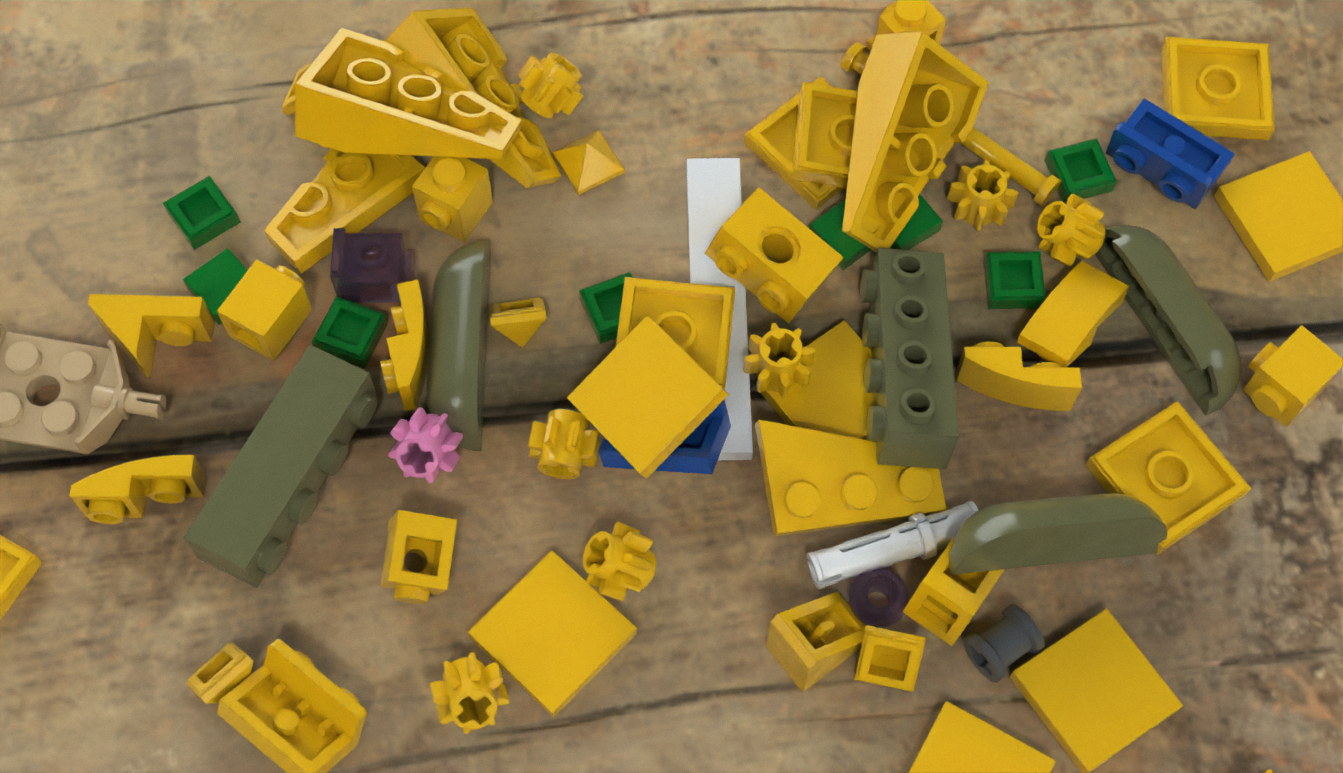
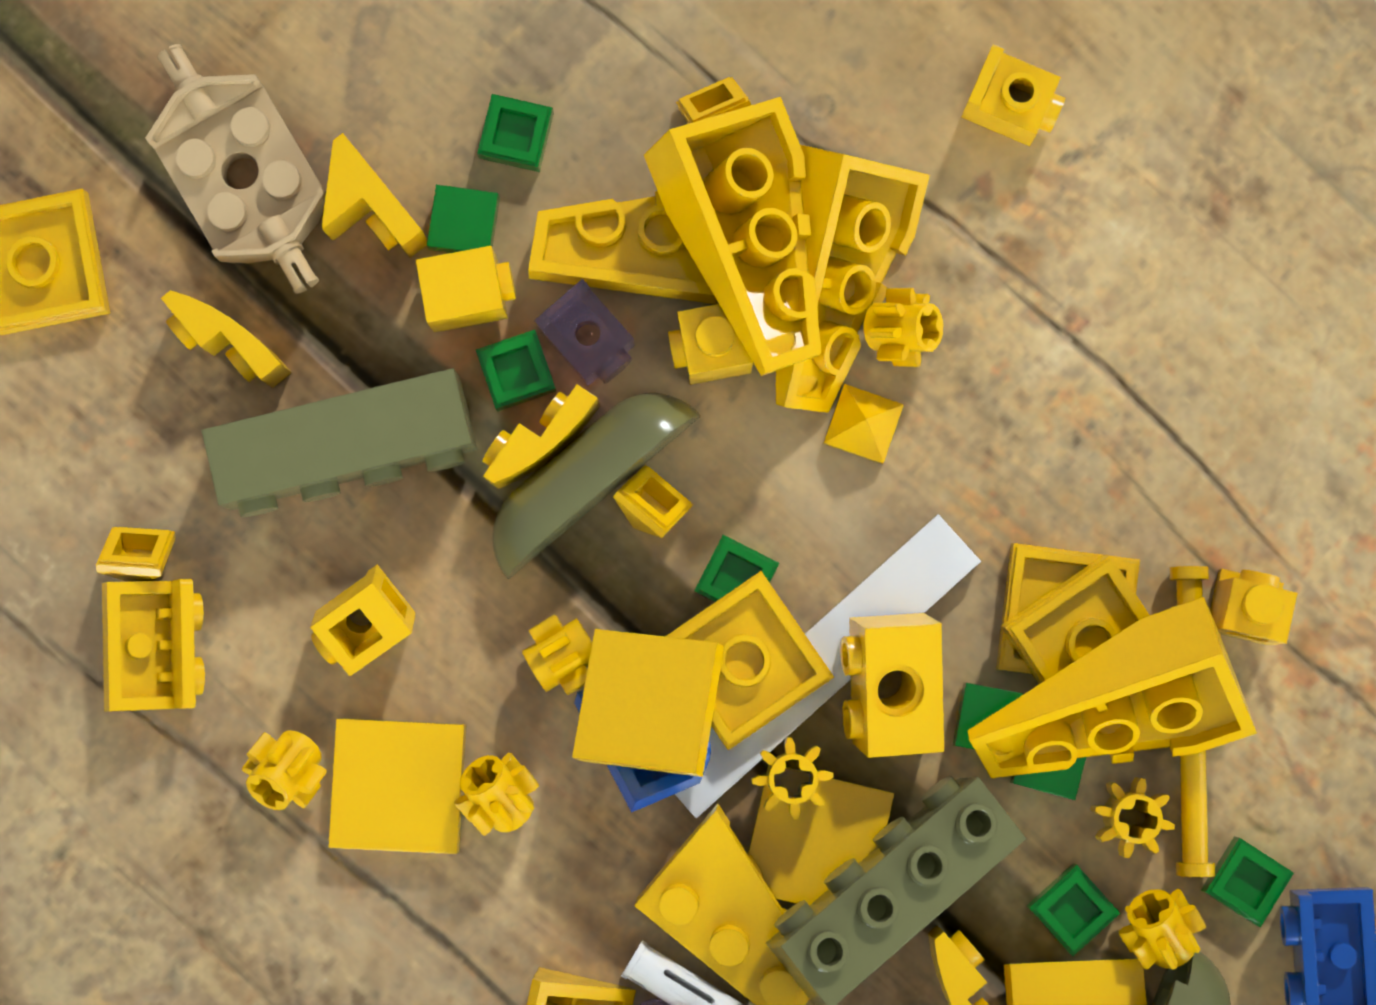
camera: 55 degrees right, 20 degrees up
(425, 445) = (459, 539): bright pink gear -> none

